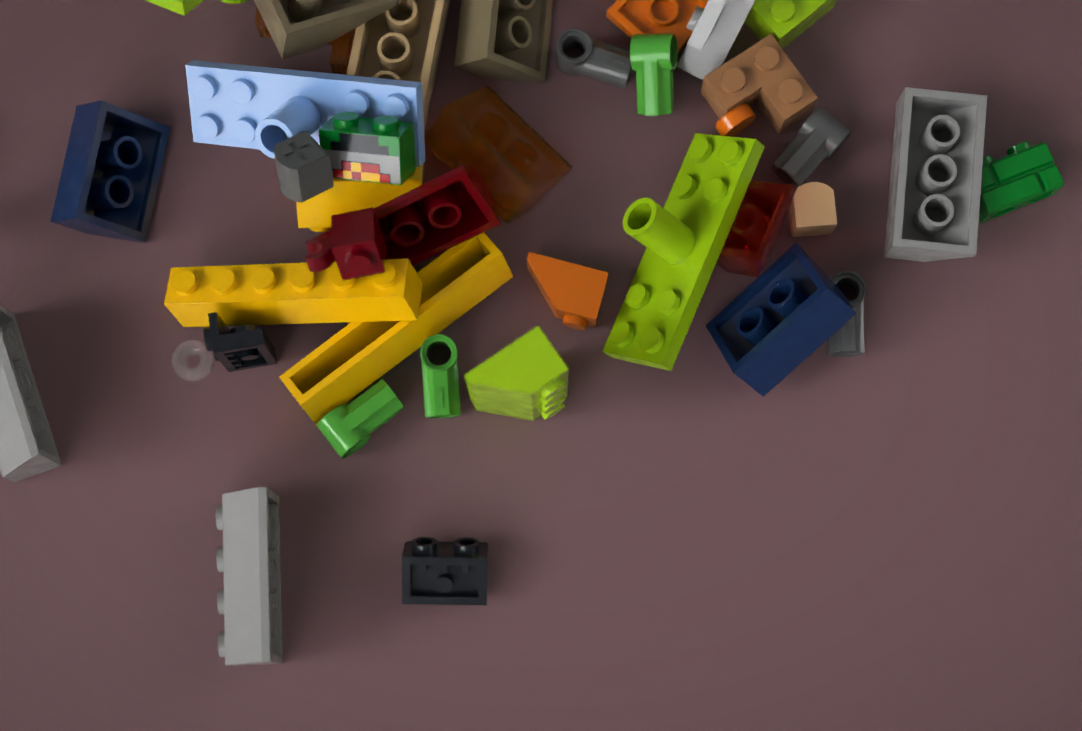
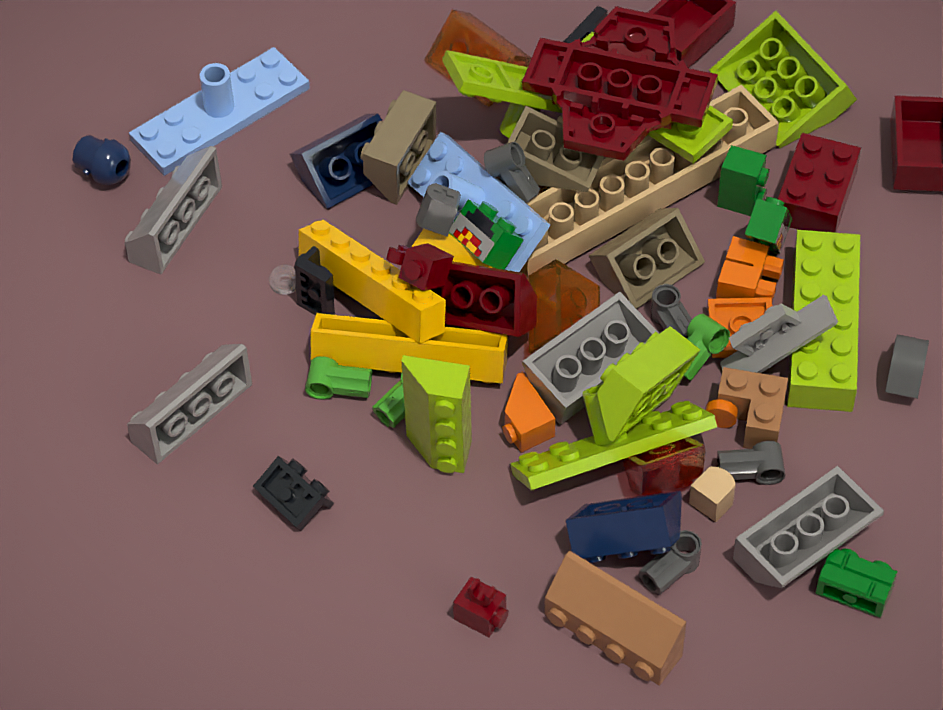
camera: 45 degrees right, 25 degrees down
(152, 112) = (399, 144): none -> dark tan slope
(310, 49) = (509, 164): none -> dark grey piece
(576, 176) = (583, 353): none -> light grey slope
(670, 163) = (643, 380): none -> lime slope
(731, 521) = (480, 607): none -> dark red brick
(863, 424) = (615, 619): none -> medium nougat slope

